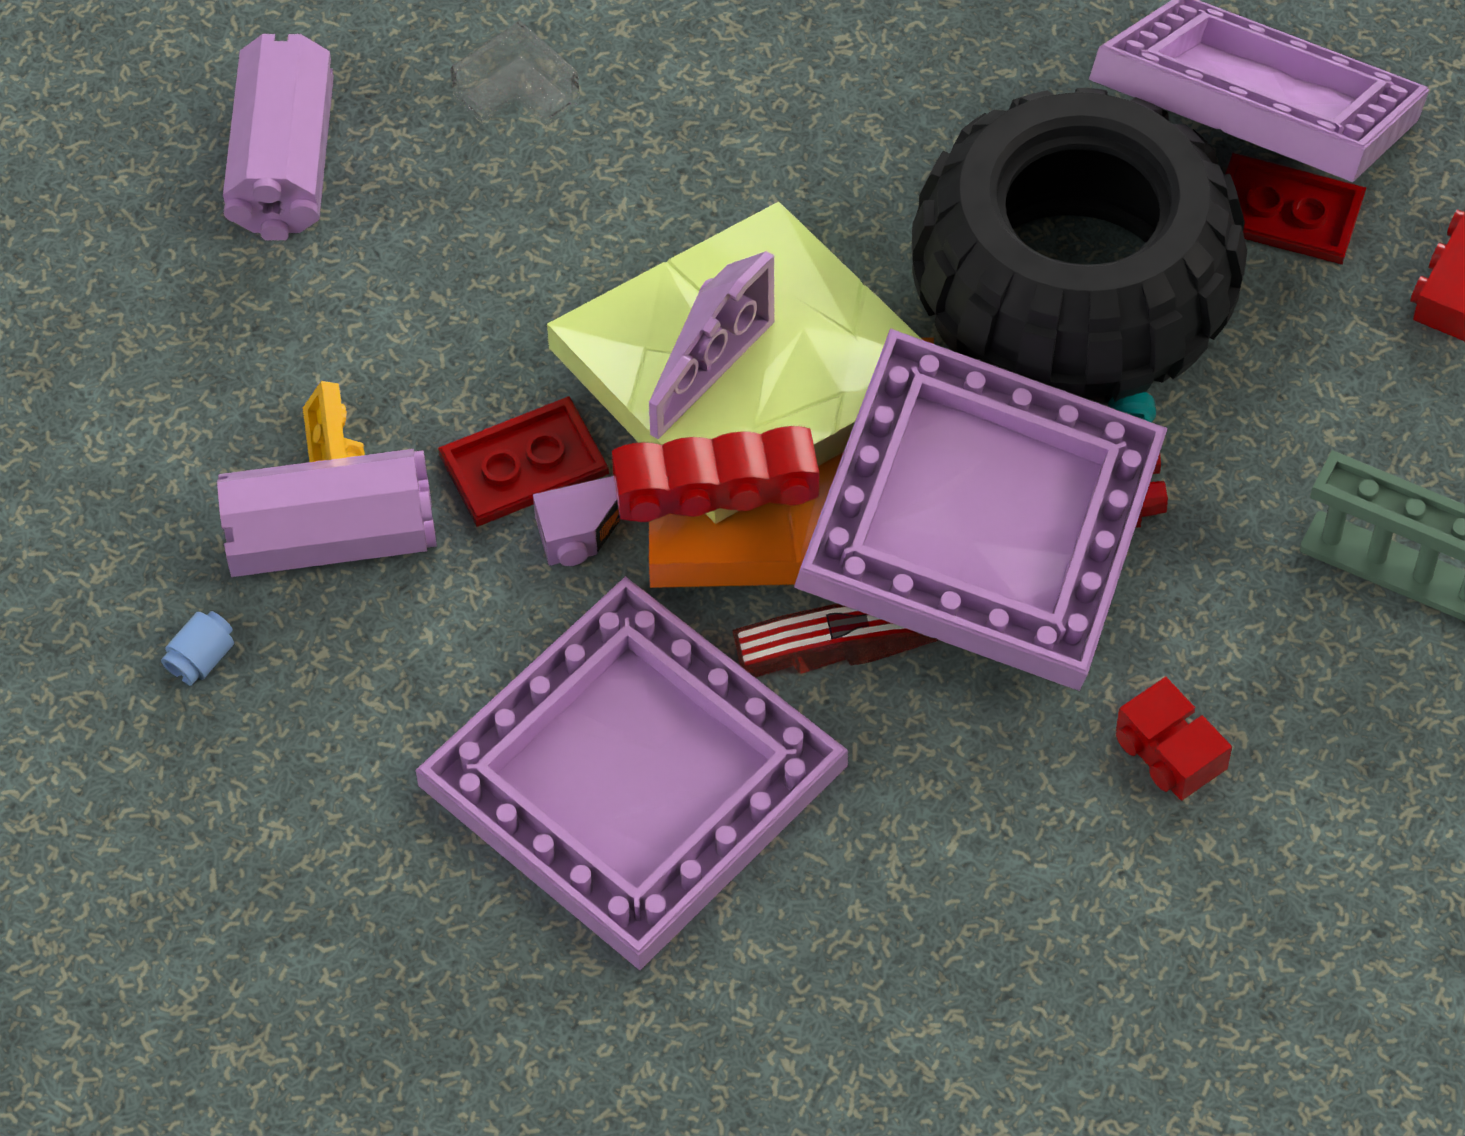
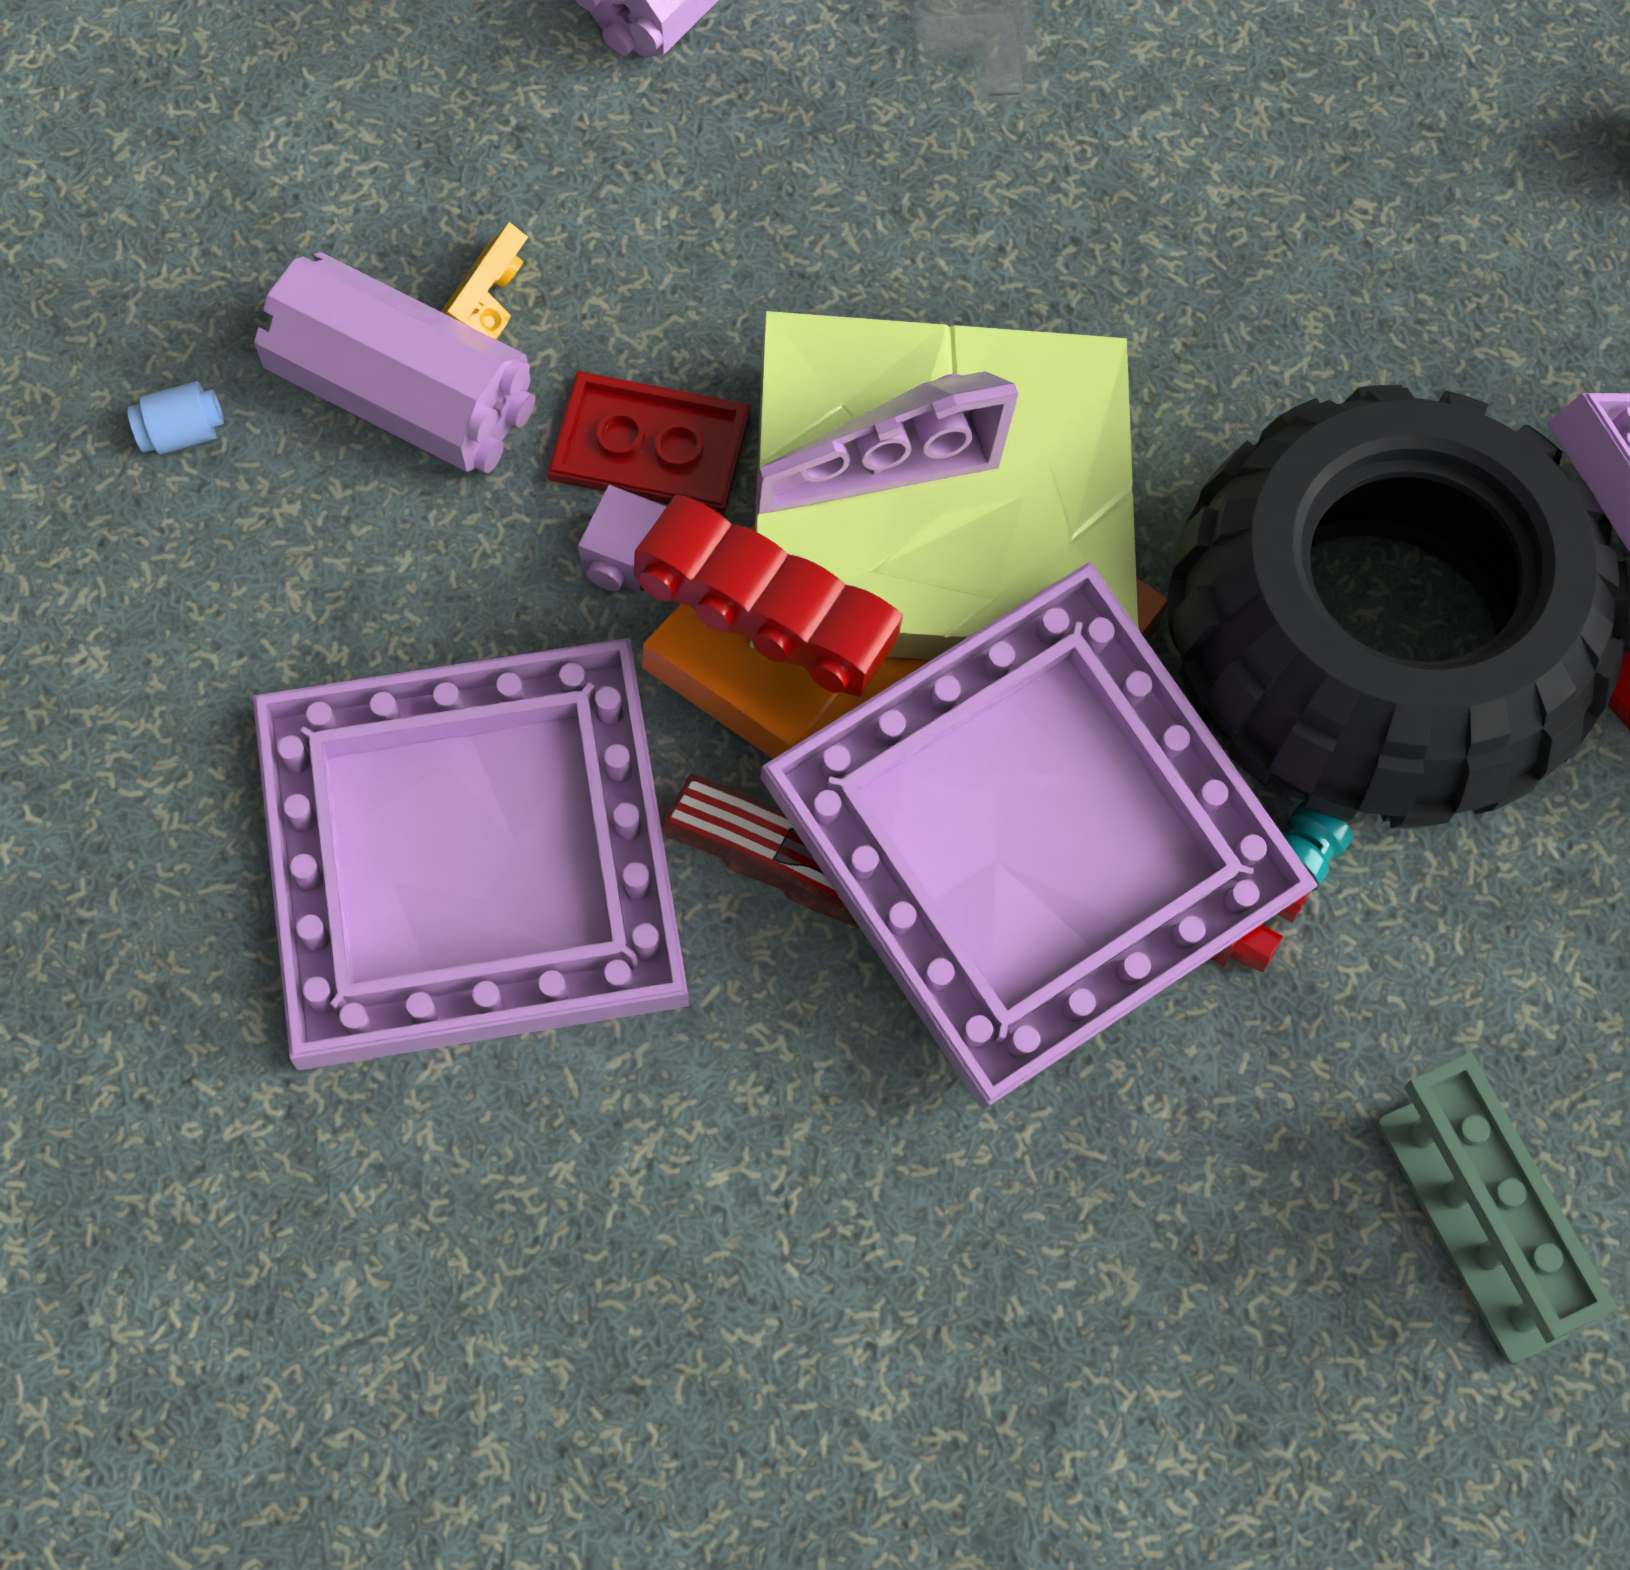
camera: 35 degrees right, 10 degrees up
(1178, 753) = (1043, 1242): red piece -> none

